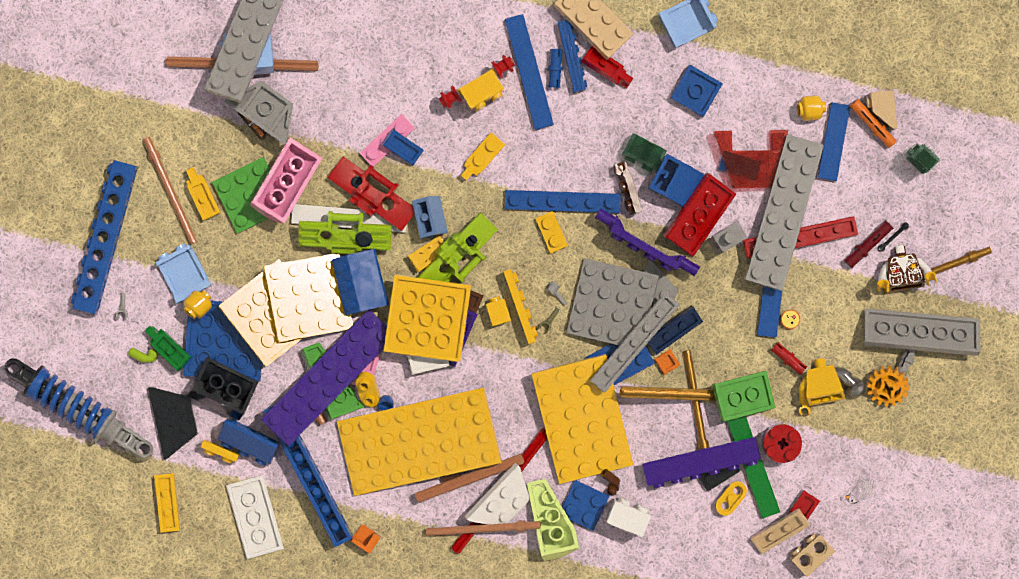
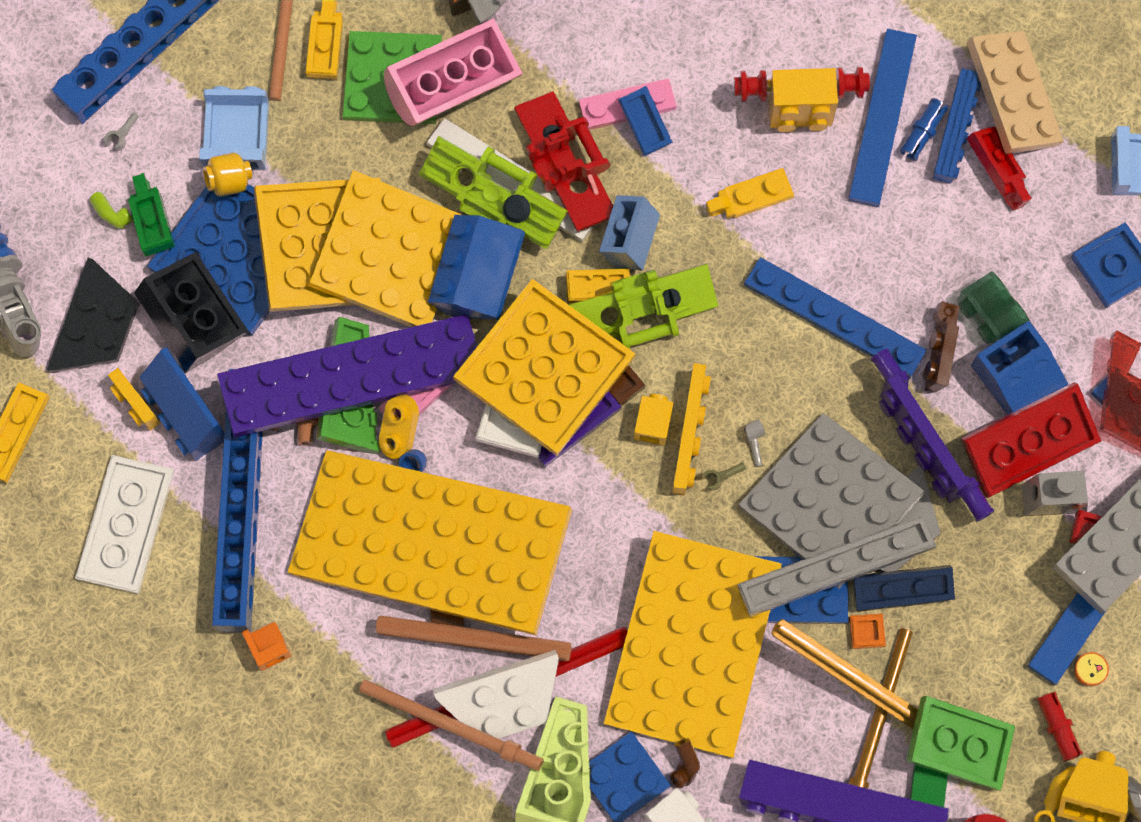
camera: 30 degrees right, 15 degrees down
(551, 232) = (794, 351): yellow plate -> none

